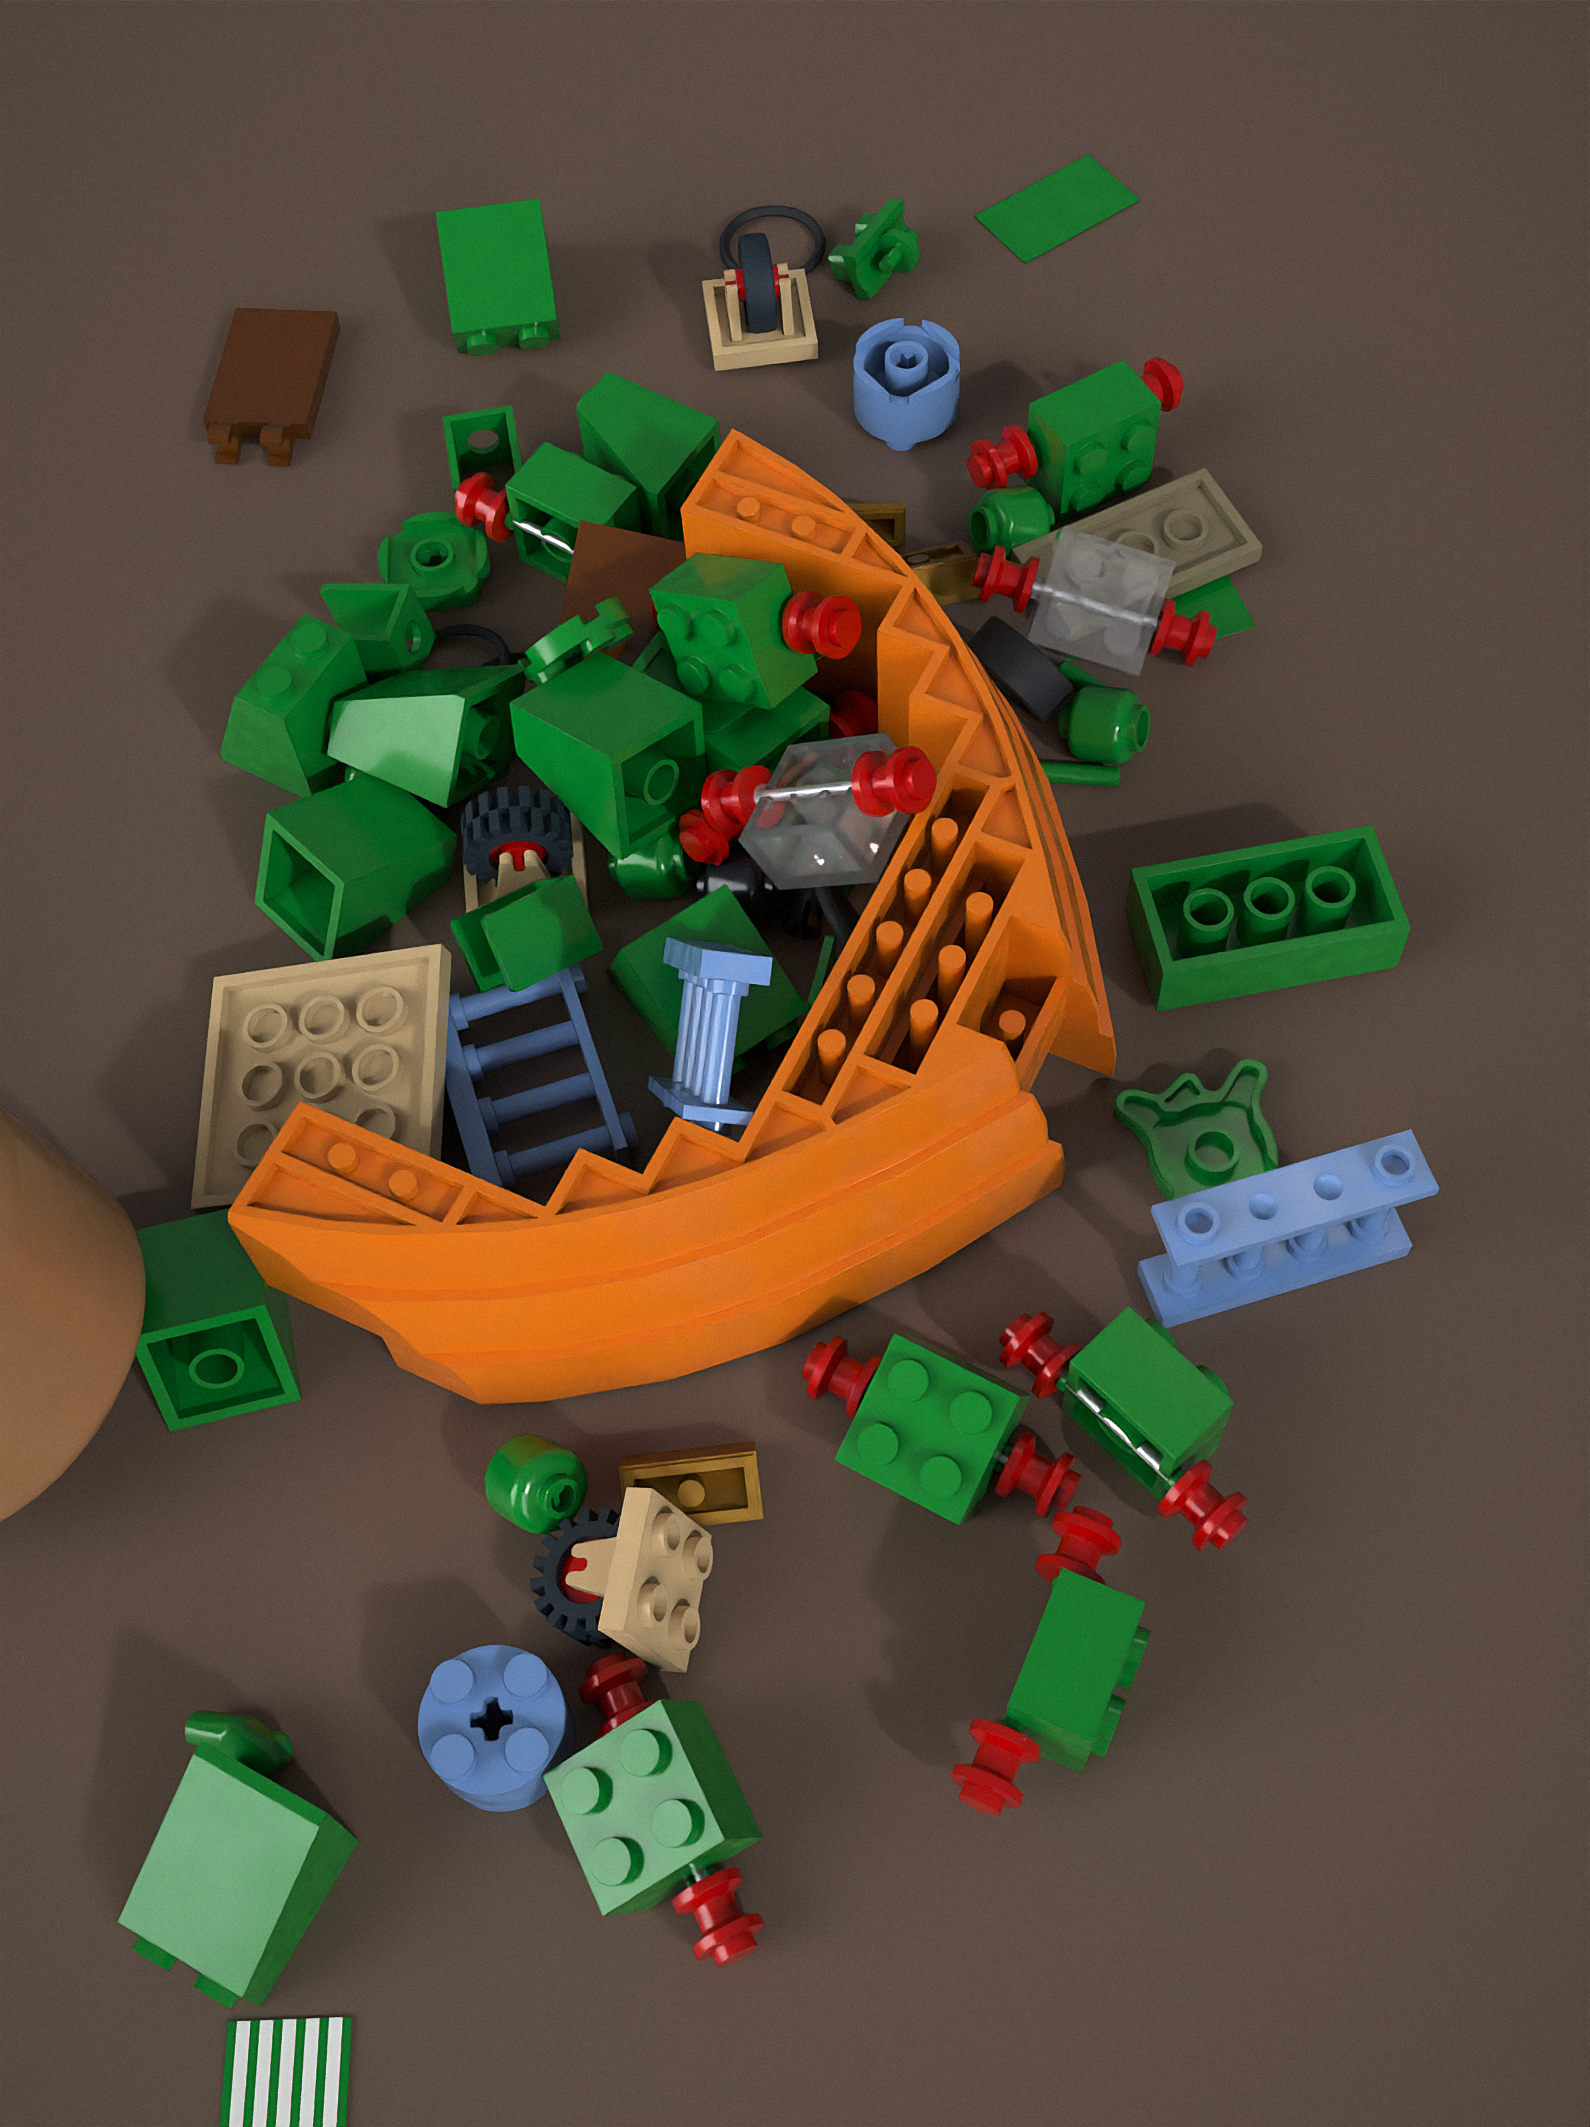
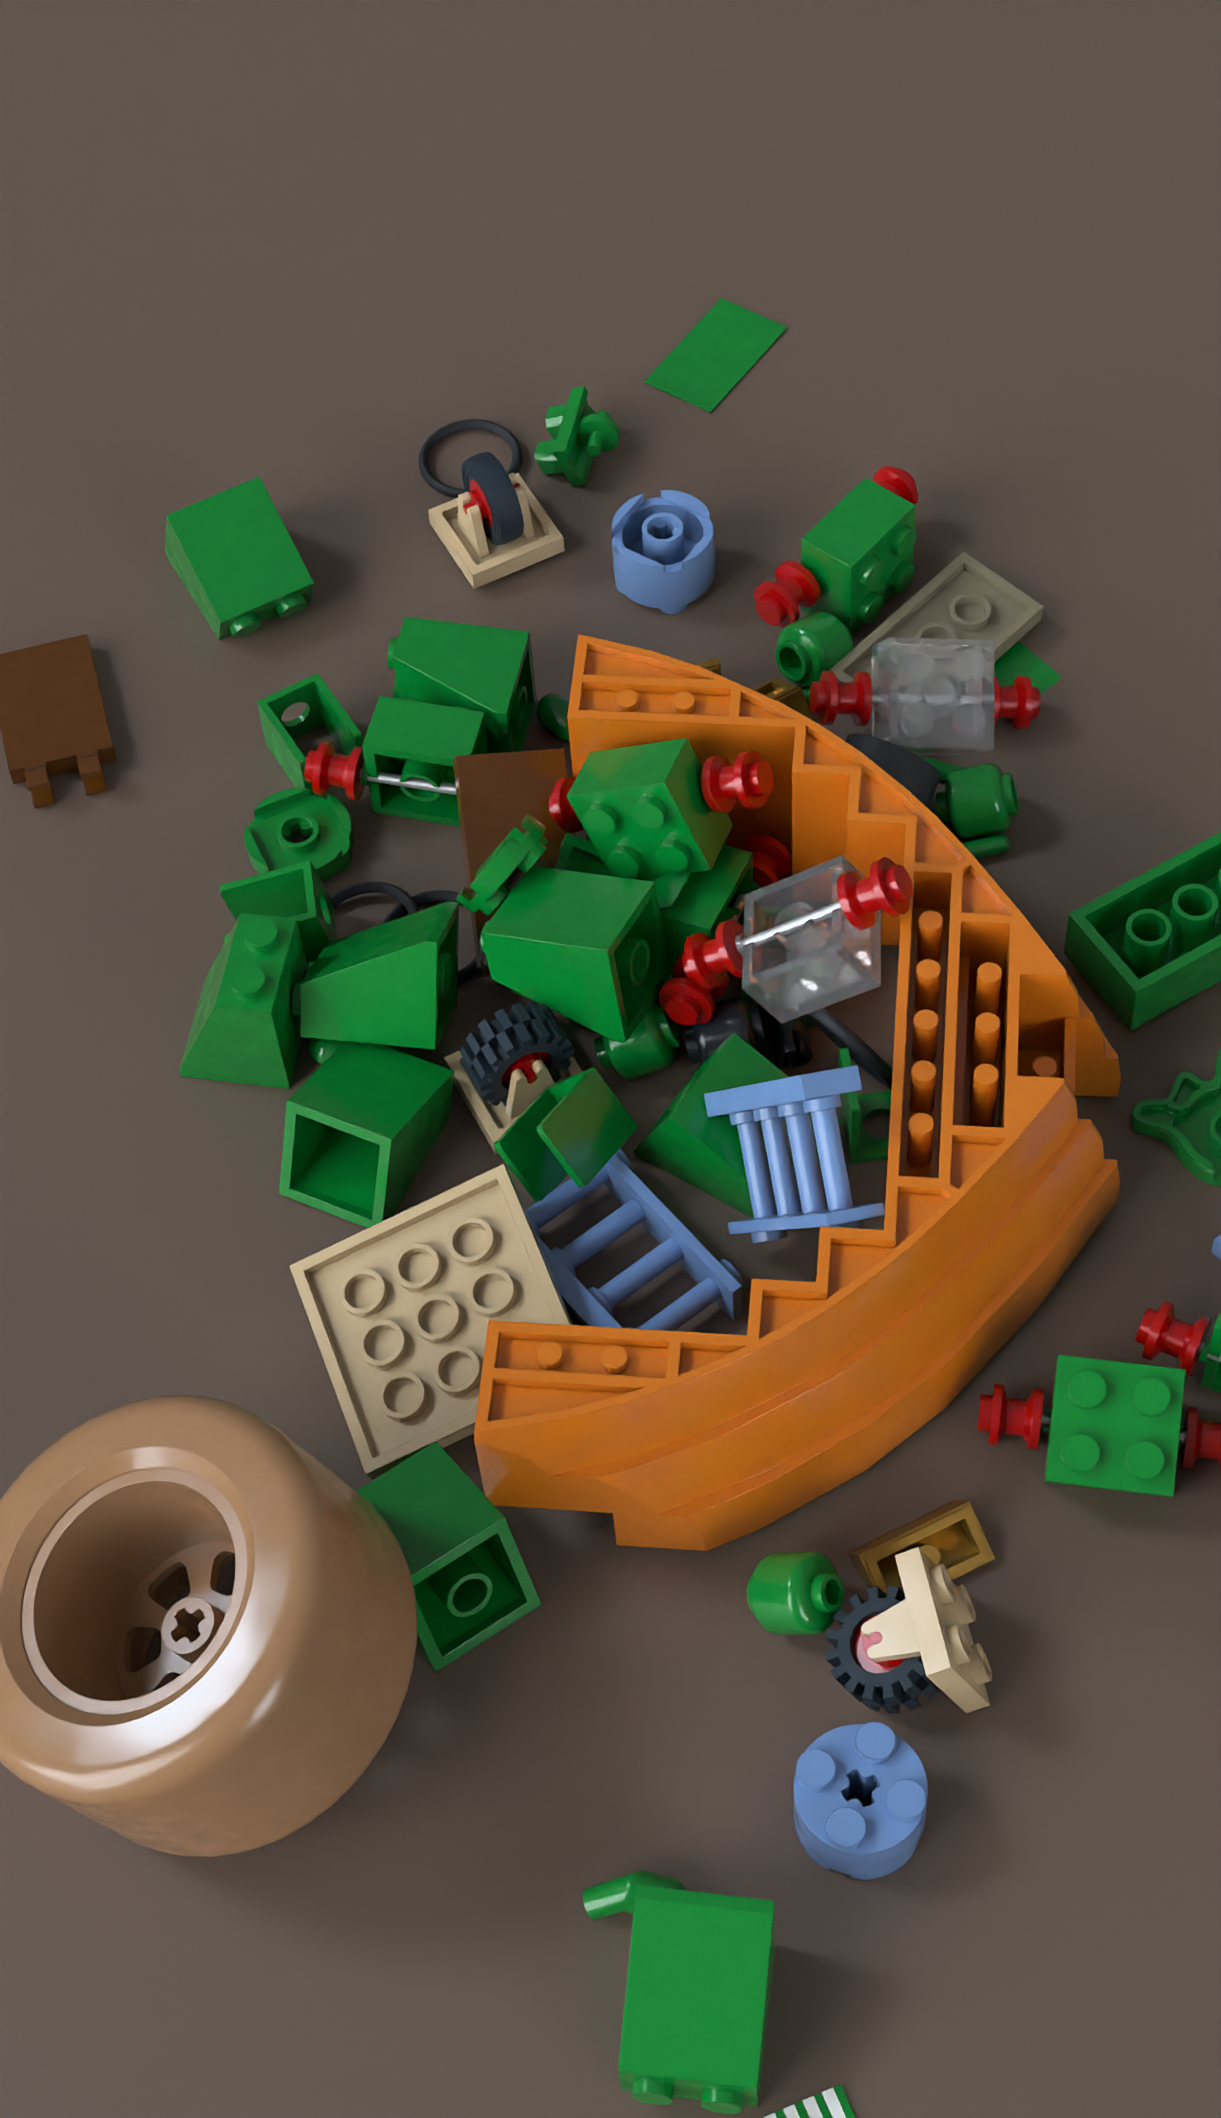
camera: 20 degrees left, 5 degrees down
(657, 1811) = (1029, 1812): brick -> none

